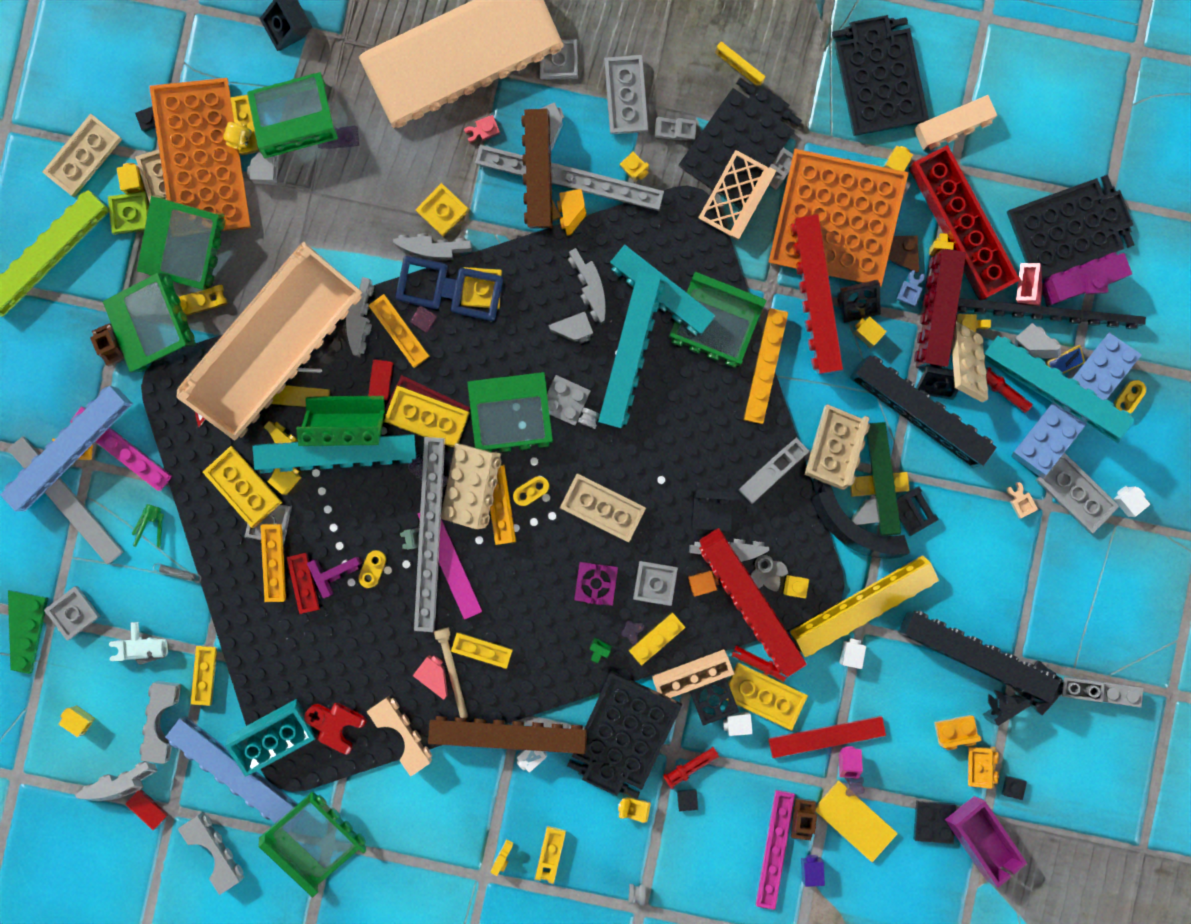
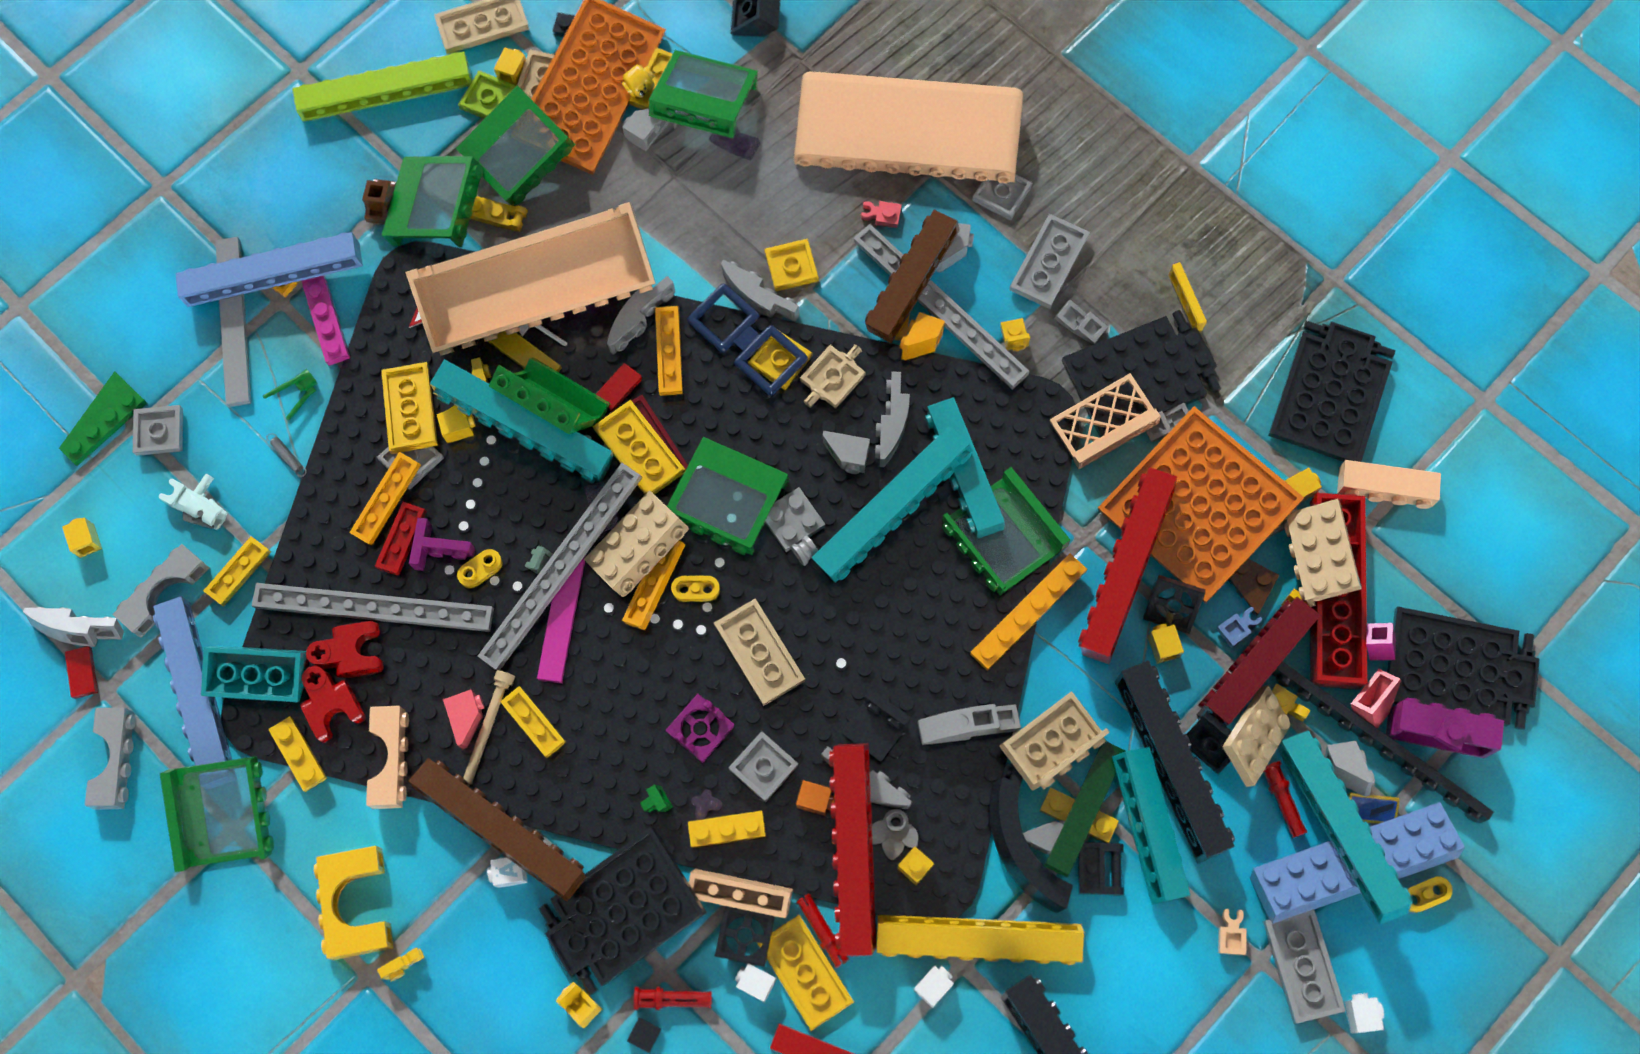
camera: 40 degrees right, 15 degrees down
(317, 642) = (372, 607): none -> light grey plate
(320, 683) = (344, 650): none -> red piece
(337, 770) = (297, 754): none -> yellow plate
(423, 319) = (701, 354): clear pink tile -> none
(450, 866) = (334, 874): none -> yellow arch
(527, 278) = (832, 376): none -> tan plate
(550, 854) = (454, 996): yellow plate -> none
(931, 463) = (1151, 825): none -> teal brick
(942, 205) = (1322, 552): none -> tan bracket
(1013, 244) = (1381, 641): none -> dark pink brick

